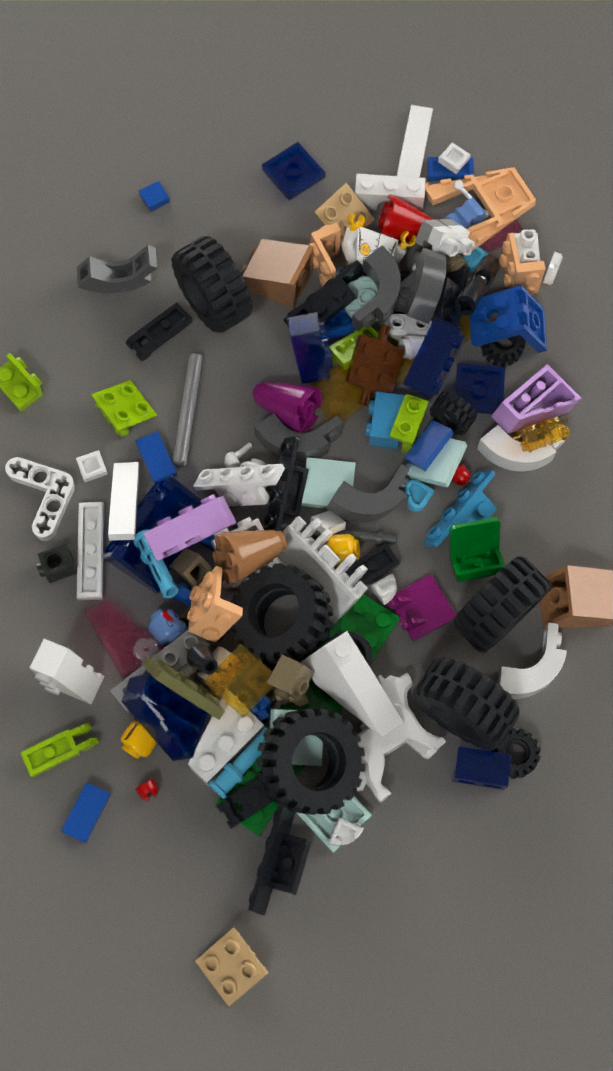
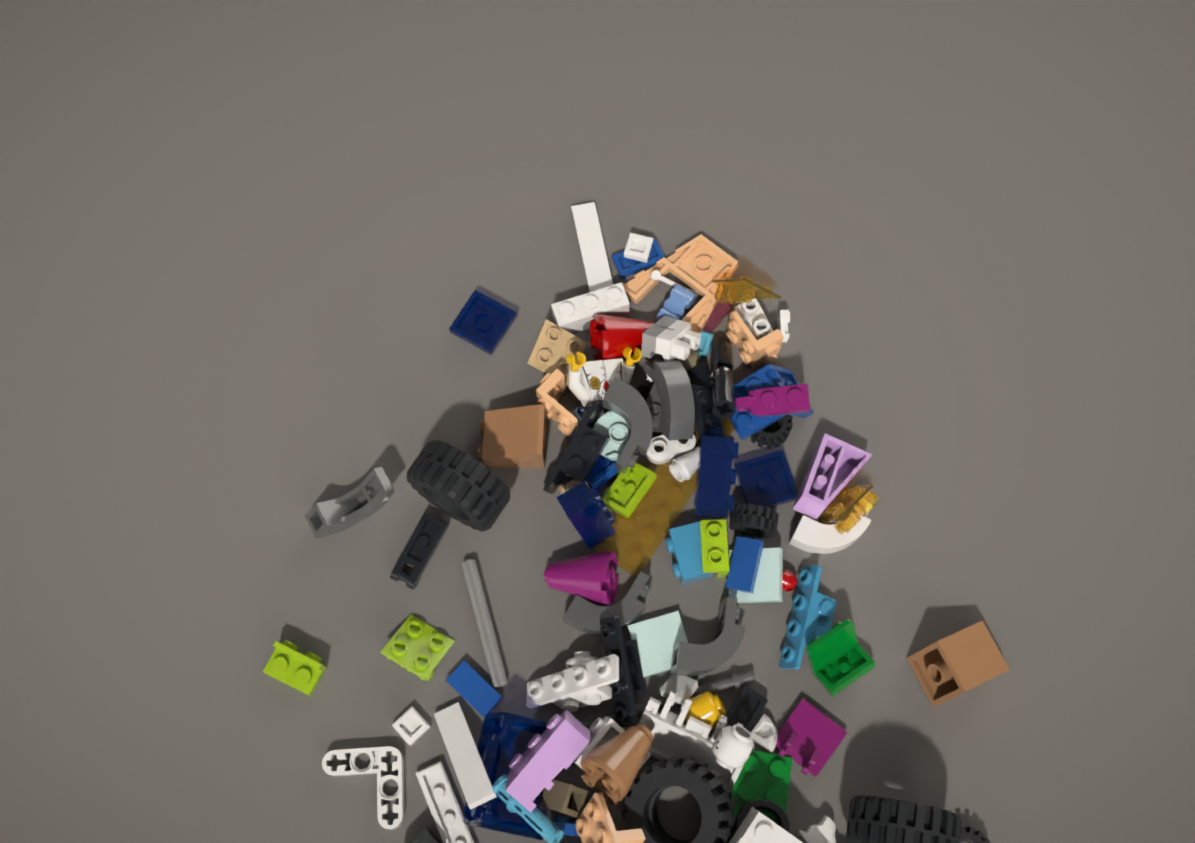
camera: 20 degrees left, 0 degrees up
(154, 196) = (351, 404): blue tile -> none
(231, 458) = (552, 659): white hand -> none
(350, 578) = (733, 746): none -> white head
(374, 365) = (656, 503): reddish brown plate -> none
(418, 495) = (754, 618): medium azure tile -> none
(501, 604) = (893, 710): black tyre -> none
(513, 316) = (776, 401): none -> magenta hinge
(528, 218) = (741, 290): none -> clear yellow hinge
(532, 680) = (954, 759): white arch -> none

